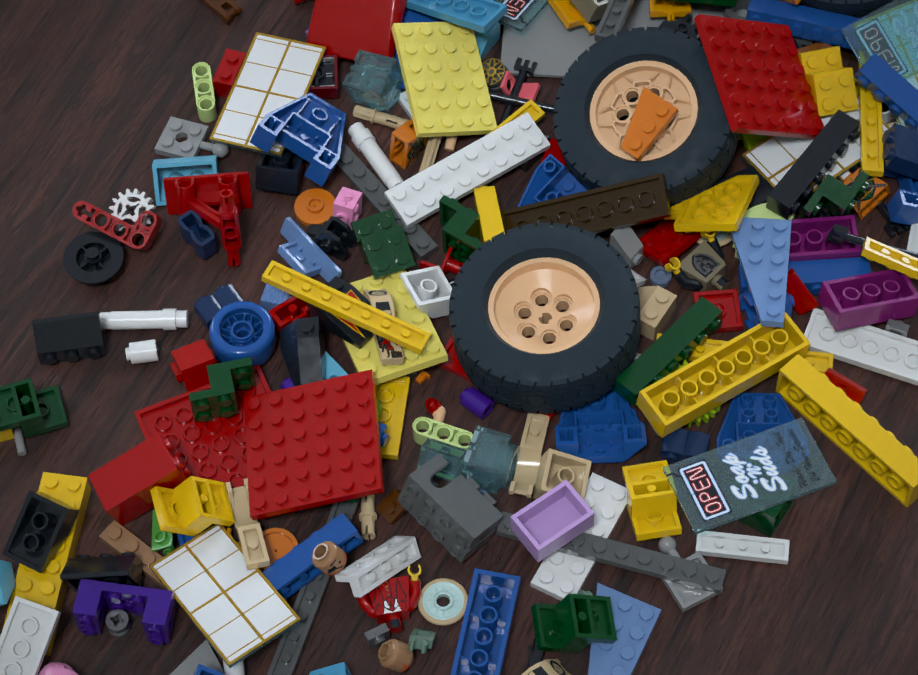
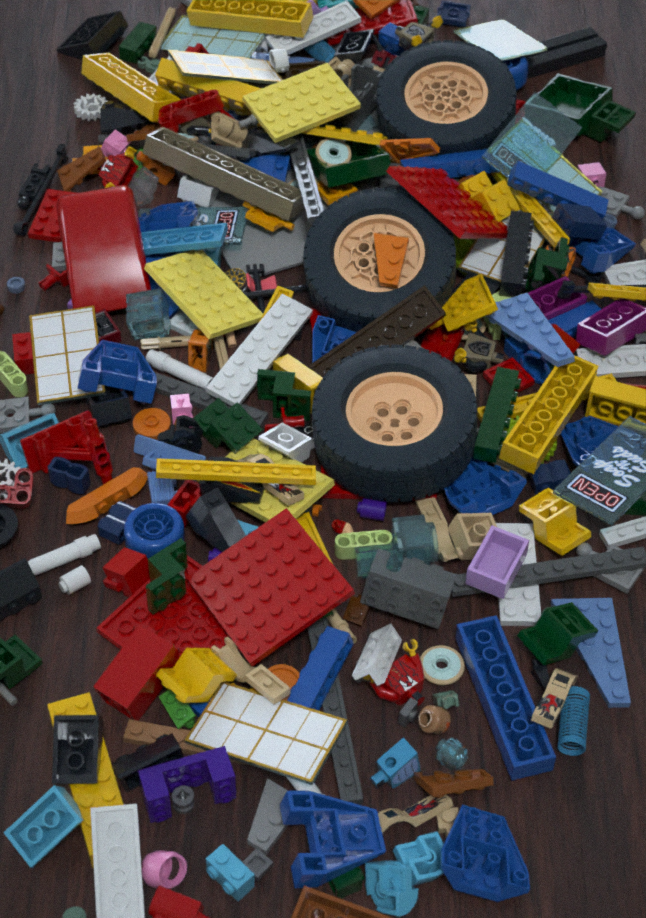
camera: 30 degrees left, 10 degrees down
(220, 273) = (105, 496): none -> orange brick
(329, 558) = (341, 662): medium nougat head -> none

